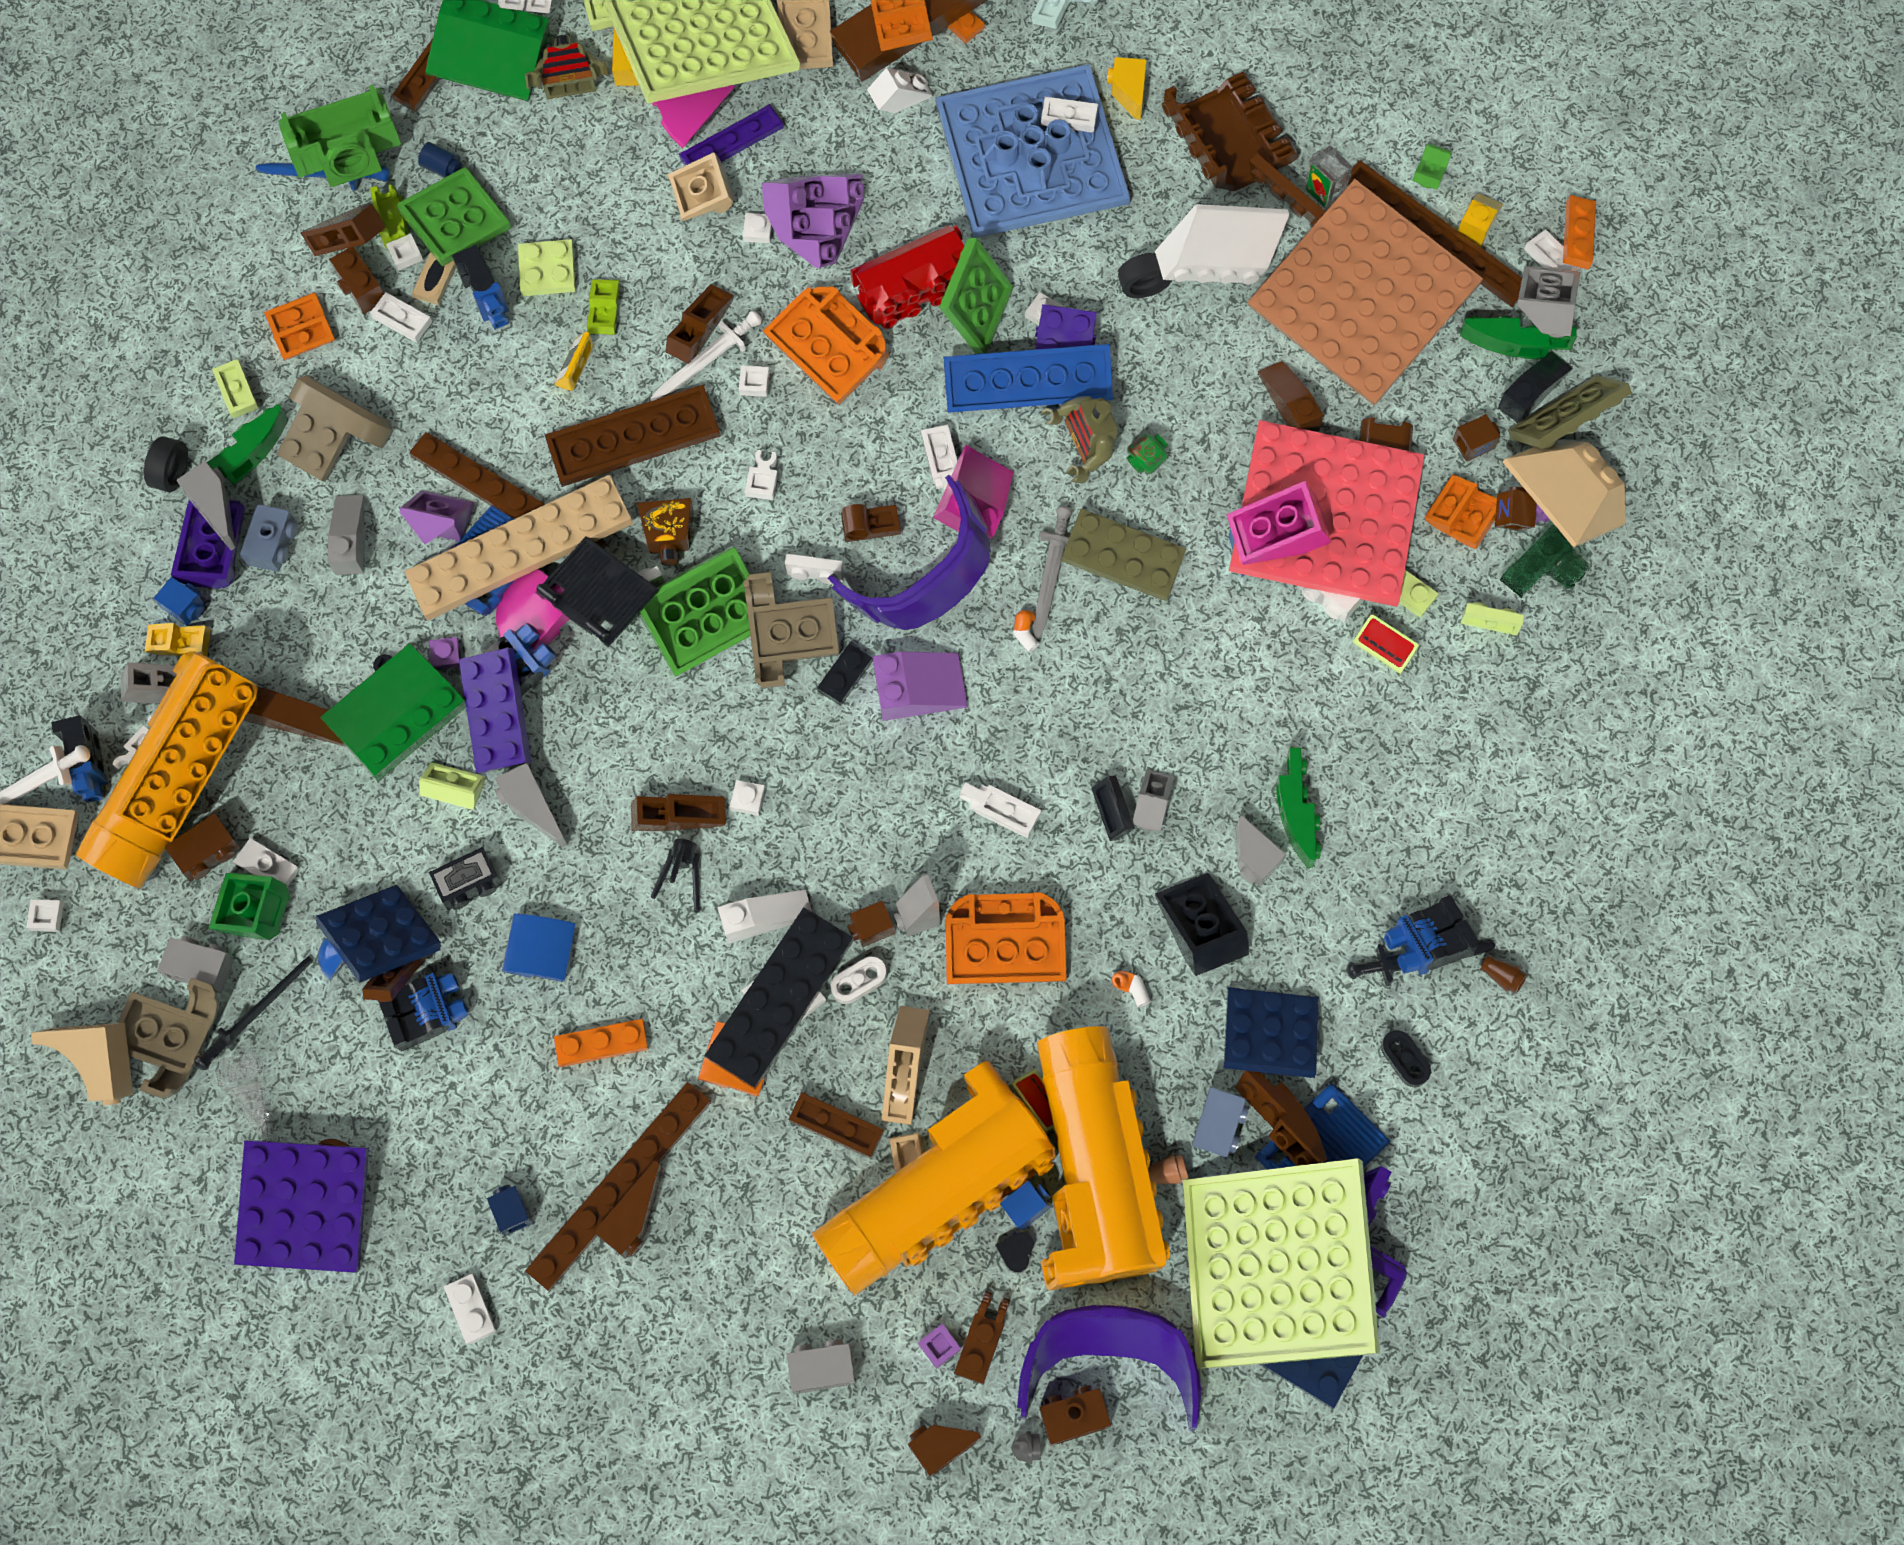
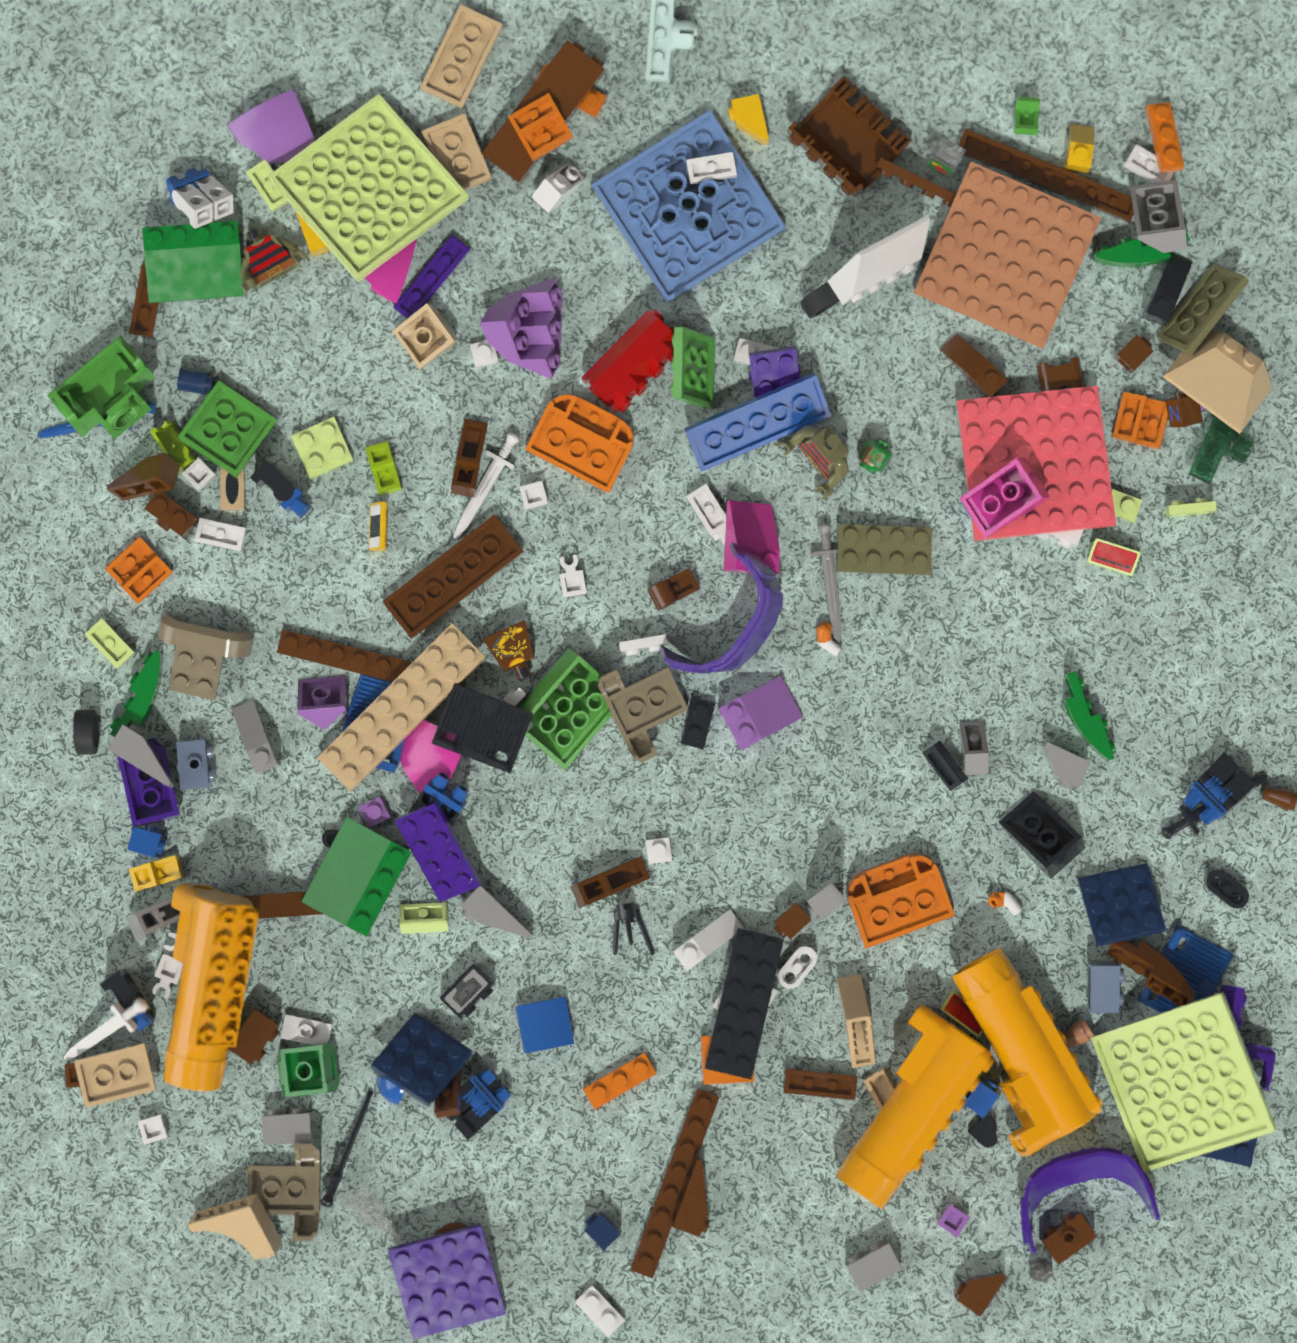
camera: 25 degrees left, 15 degrees up
(981, 1342) = (982, 1205): reddish brown hinge -> none
(1001, 808) = (859, 794): white hinge -> none

